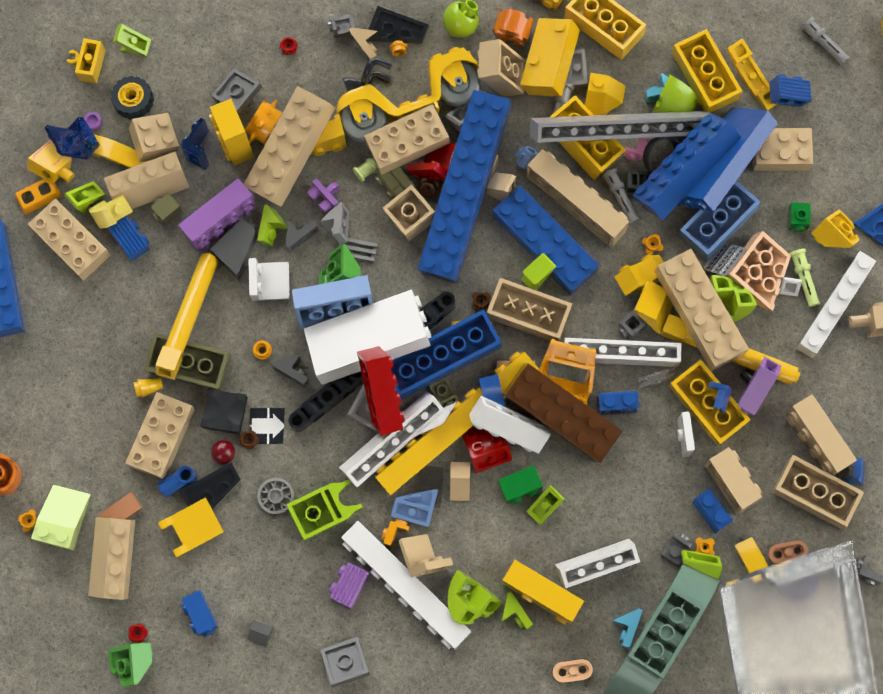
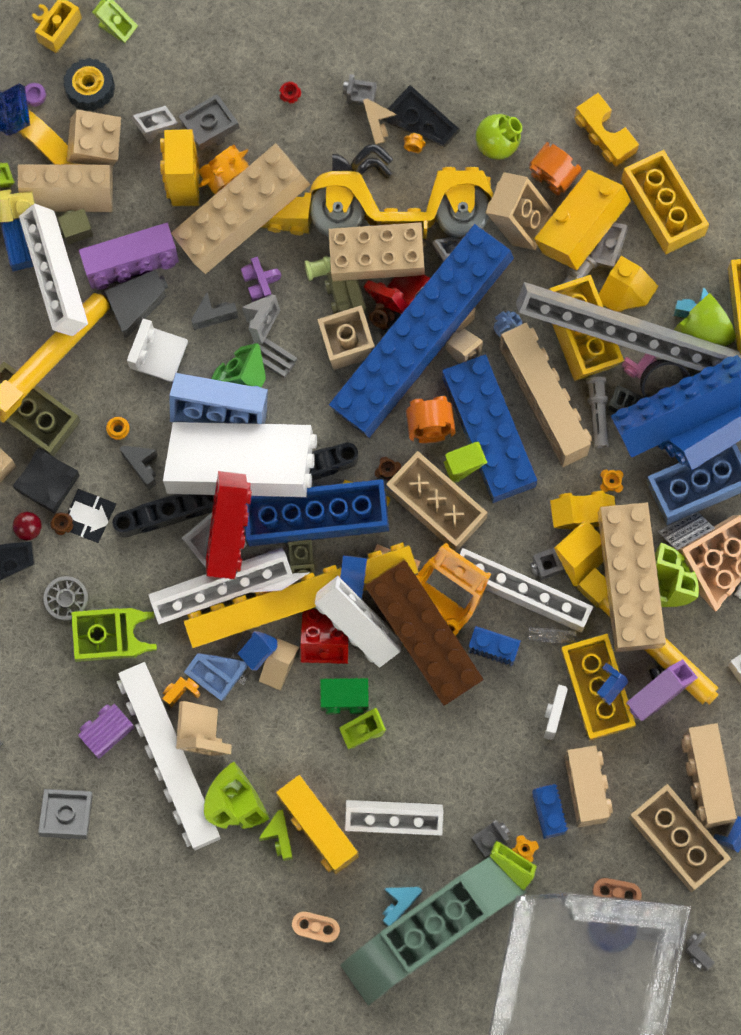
camera: 20 degrees right, 0 degrees up
(164, 248) = (53, 270): none -> white brick
(191, 144) = (132, 164): clear blue bracket -> none
(194, 107) = (154, 122): none -> light grey slope
(269, 223) = (184, 287): lime slope -> none
(441, 476) = (258, 649): none -> blue tile
(499, 251) = (430, 420): none -> orange brick
(750, 555) = (573, 876): yellow slope -> none

